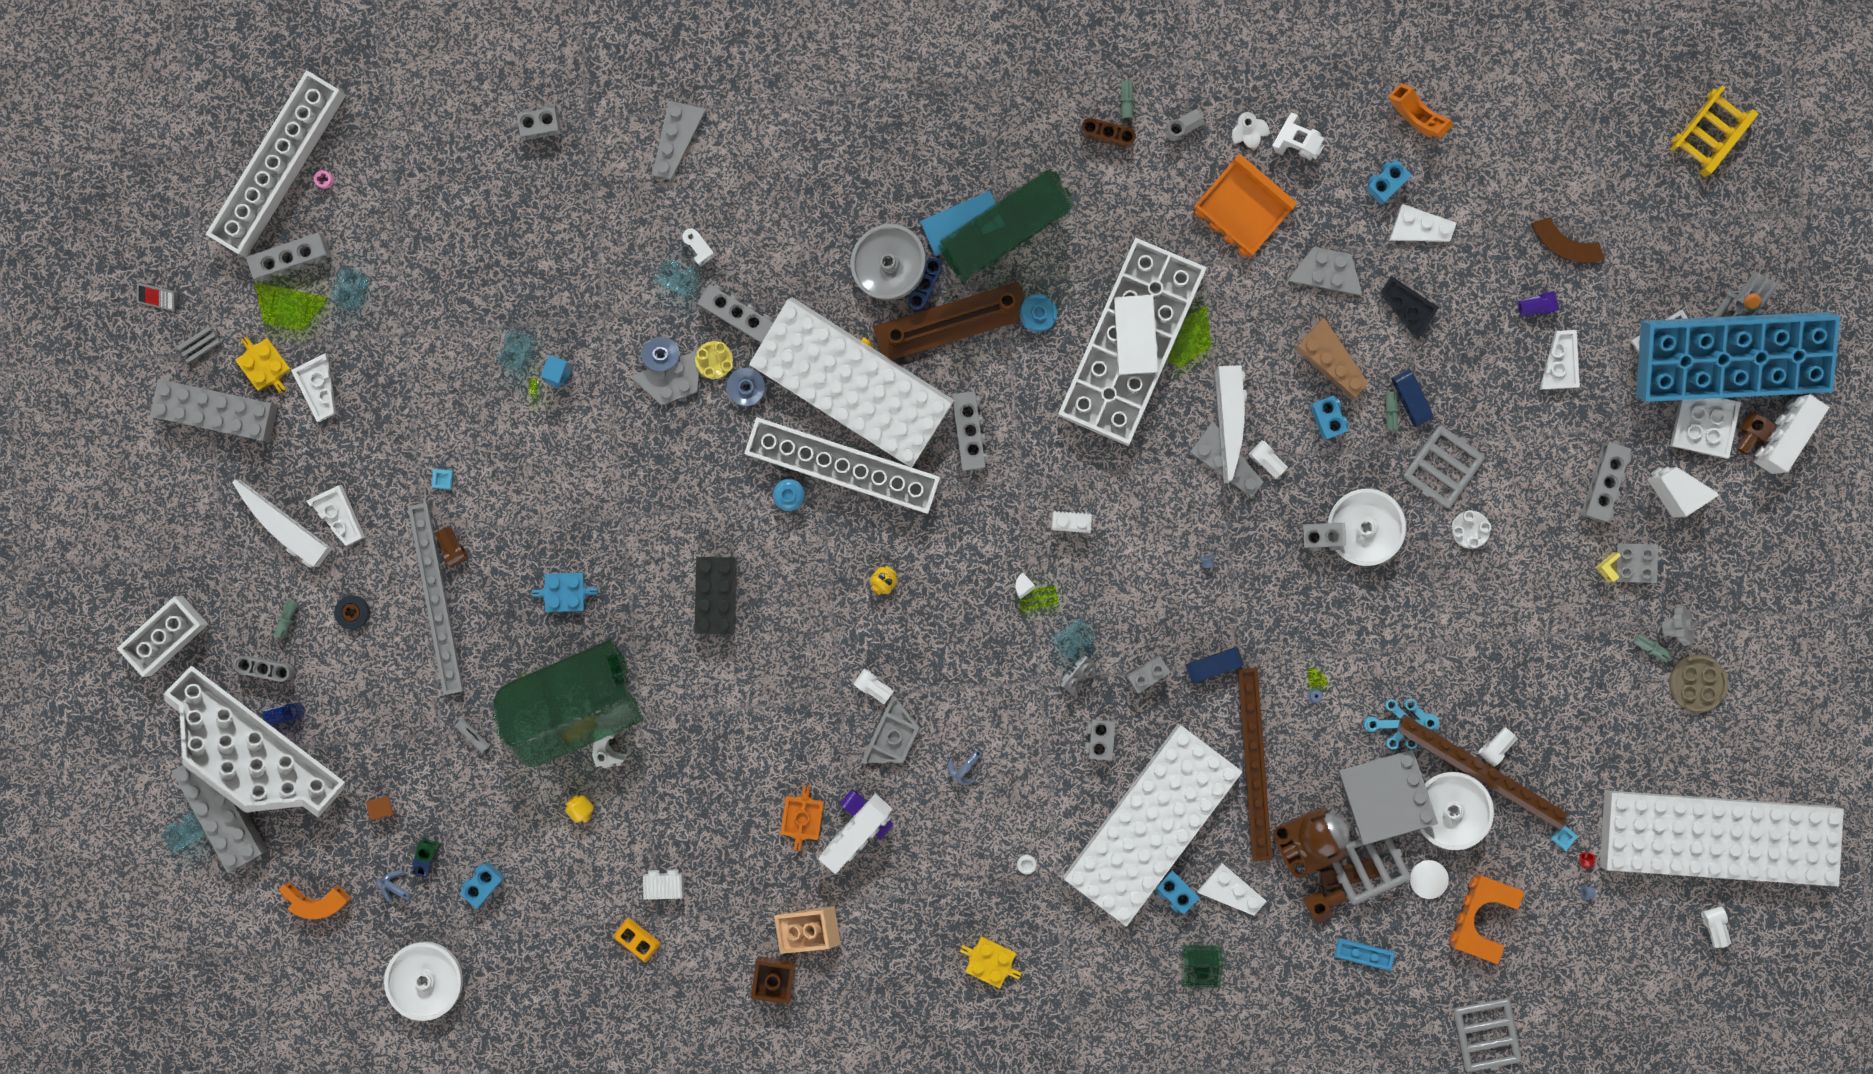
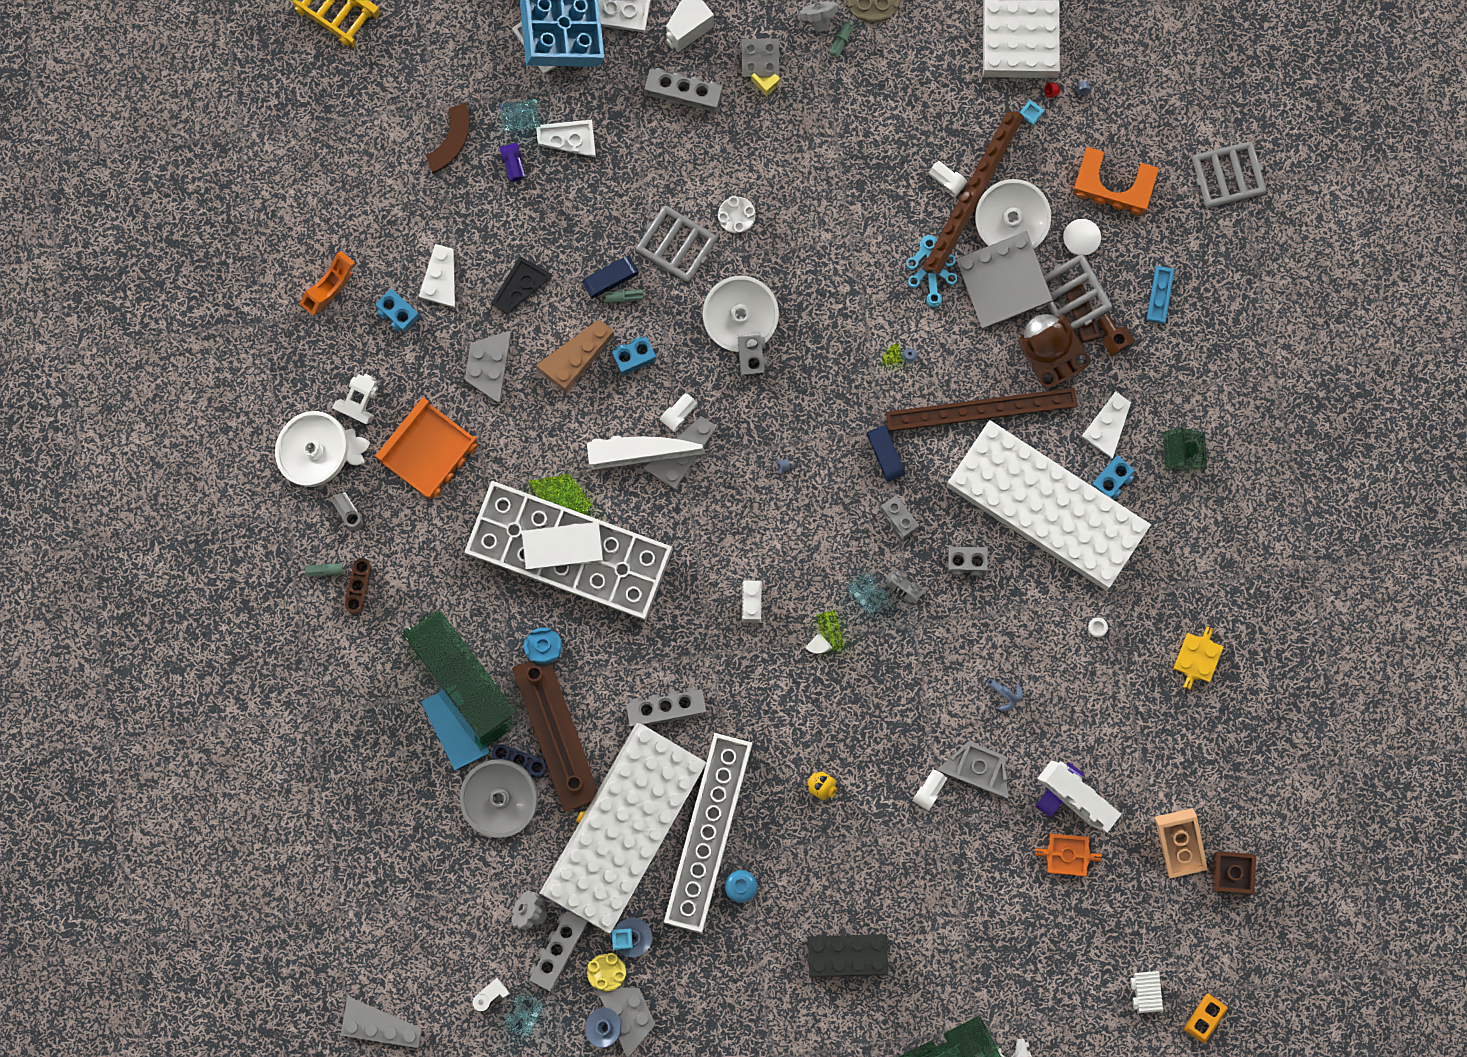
camera: 90 degrees left, 10 degrees down
(744, 376) = (622, 939): none -> medium azure tile
(776, 286) = (528, 911): none -> light grey plant
(1250, 90) = (311, 449): none -> white dish
(1588, 313) = (519, 115): none -> clear light blue brick

